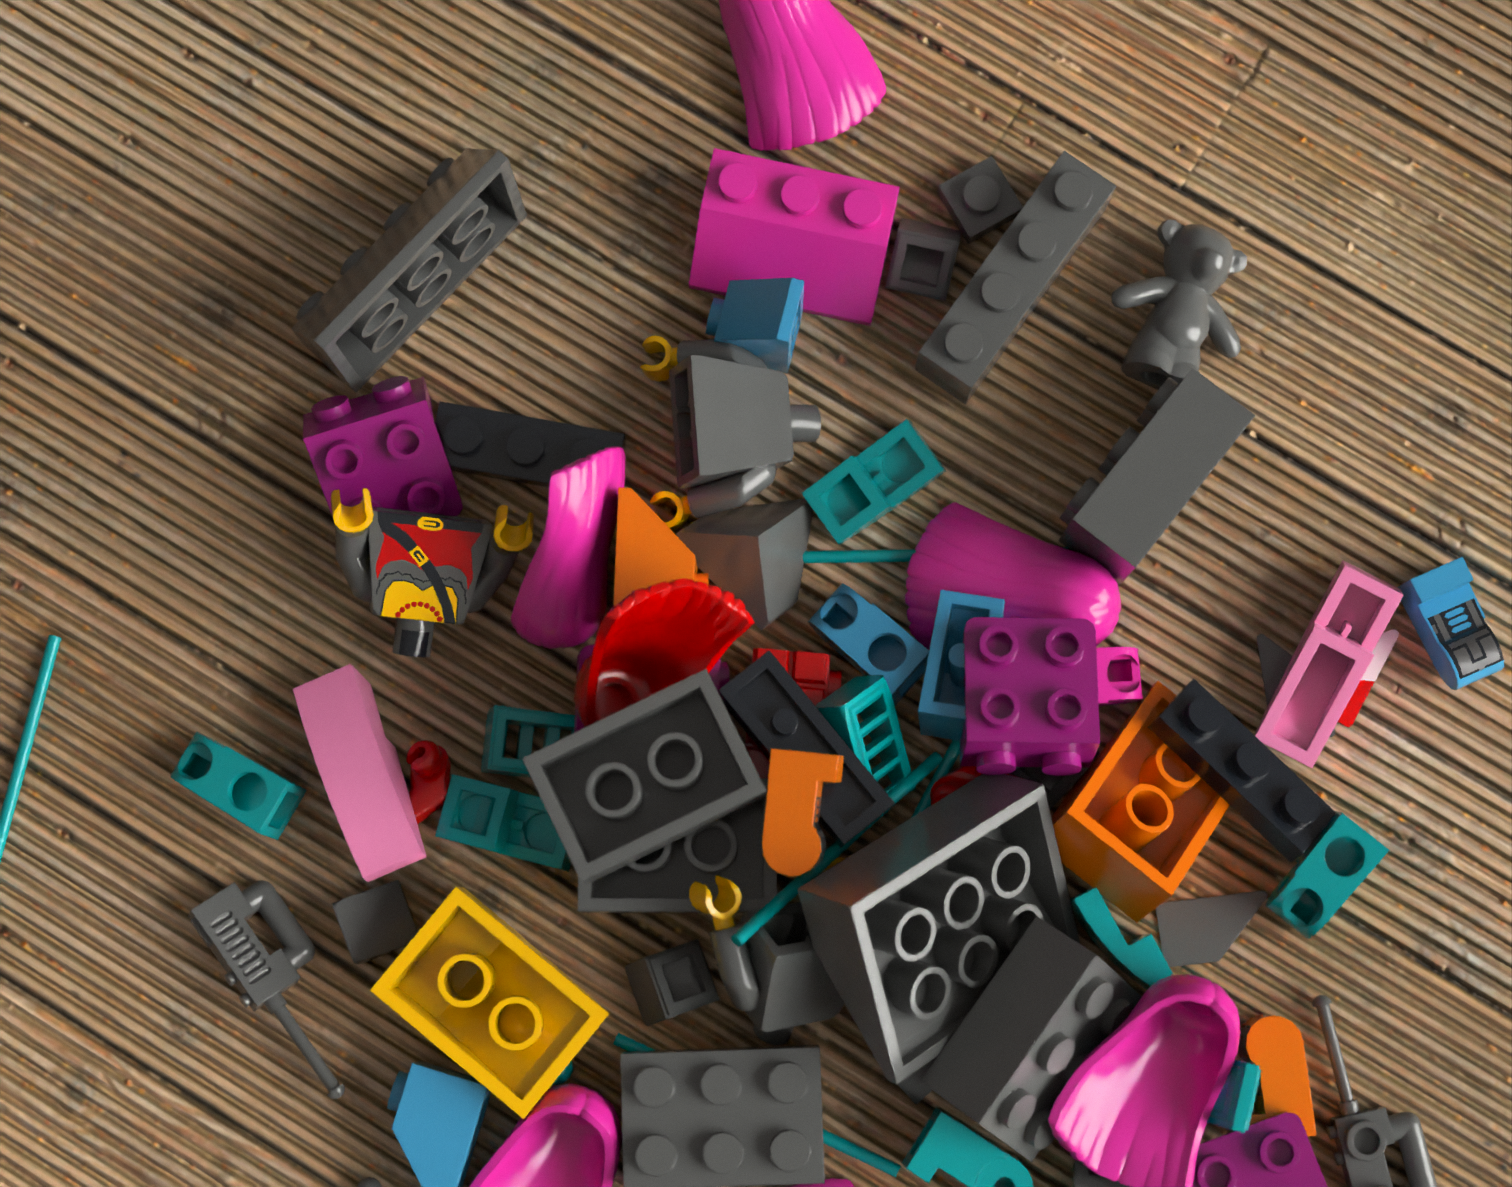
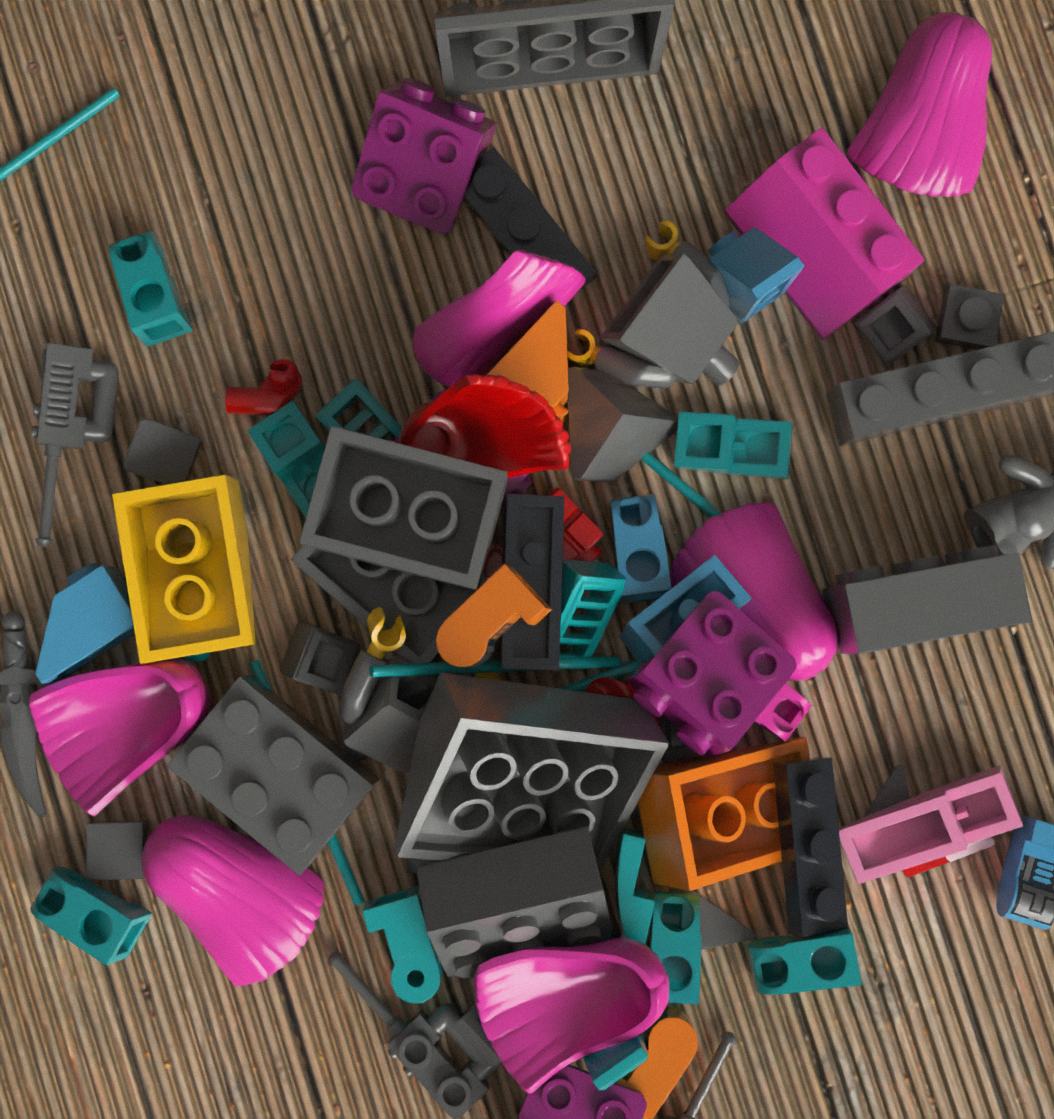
camera: 40 degrees right, 5 degrees up
(360, 771) = (232, 346): bright pink slope -> none
(423, 564) = (387, 243): torso -> none
(1200, 950) = (678, 943): none -> teal leg

